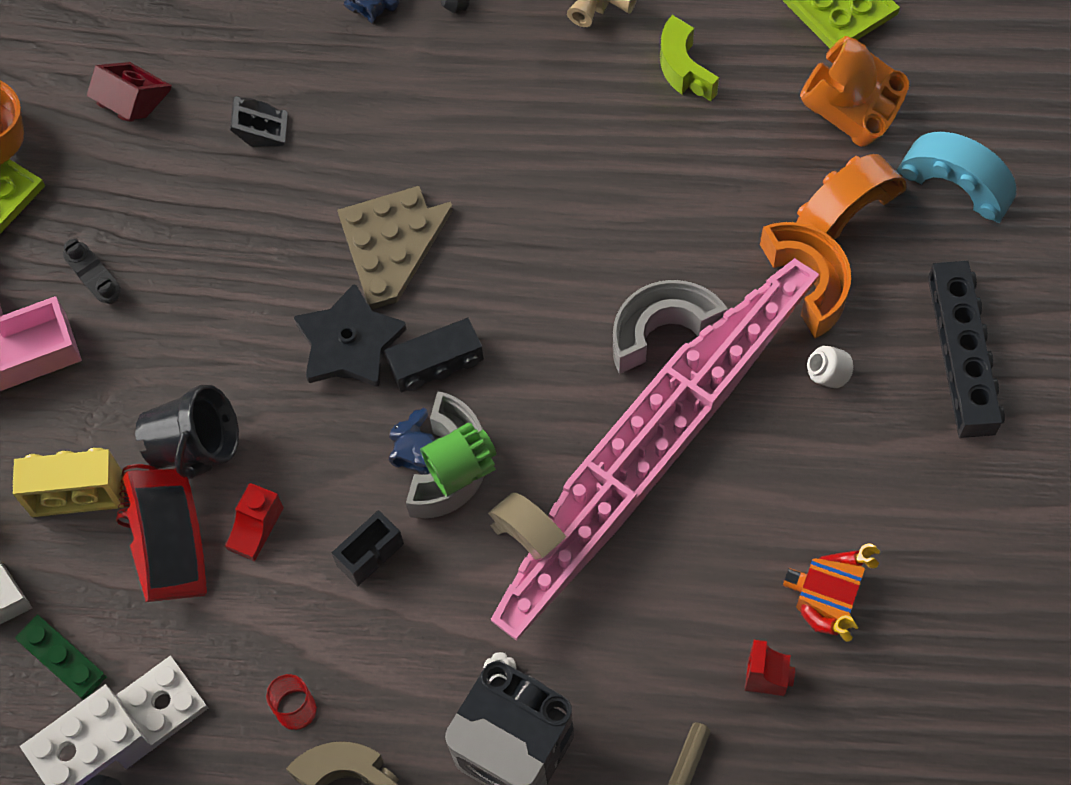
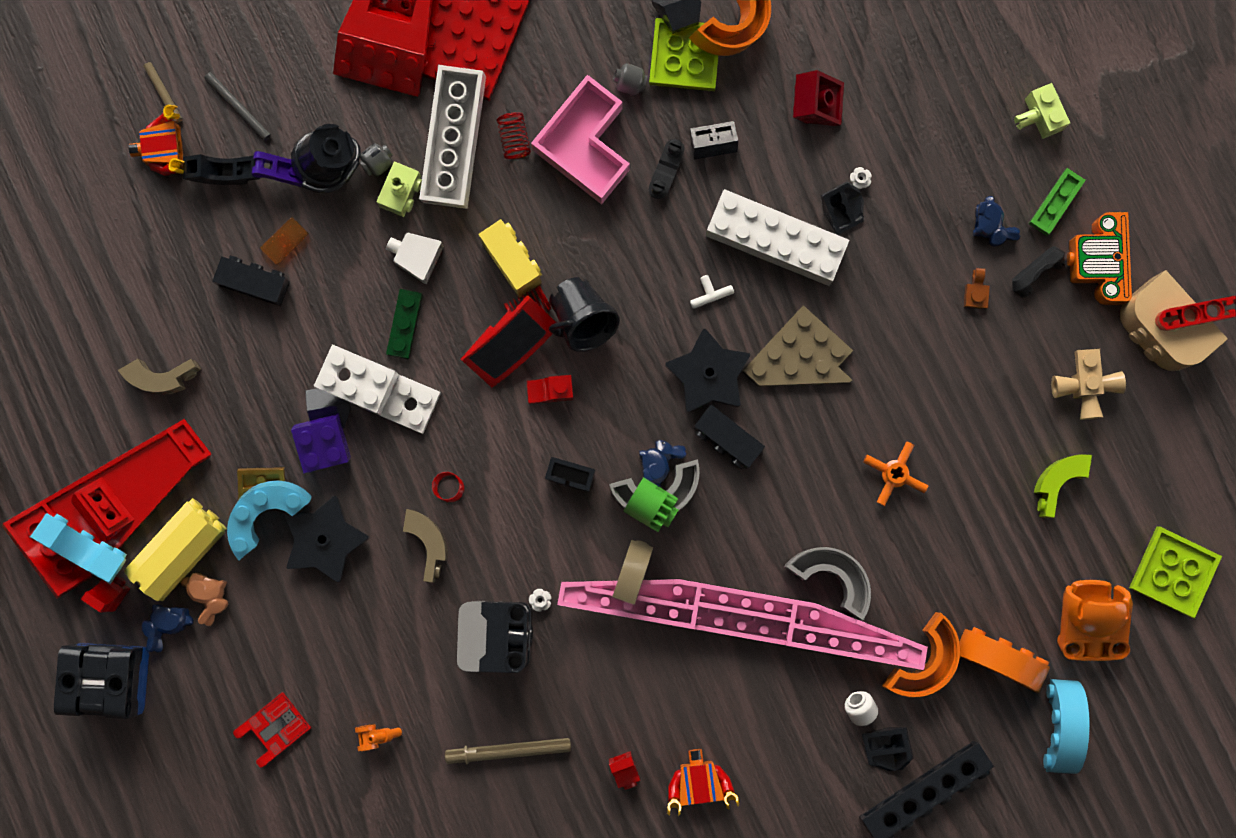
camera: 55 degrees right, 20 degrees up
(96, 208) = (714, 140): none -> hinge
(245, 198) = (777, 237): none -> white brick
(246, 90) = (854, 178): none -> white plate
(262, 298) = (711, 295): none -> white piece
(434, 46) = (976, 293): none -> dark orange plate
(580, 208) = (904, 478): none -> orange bar
(893, 362) = (888, 748): none -> black slope

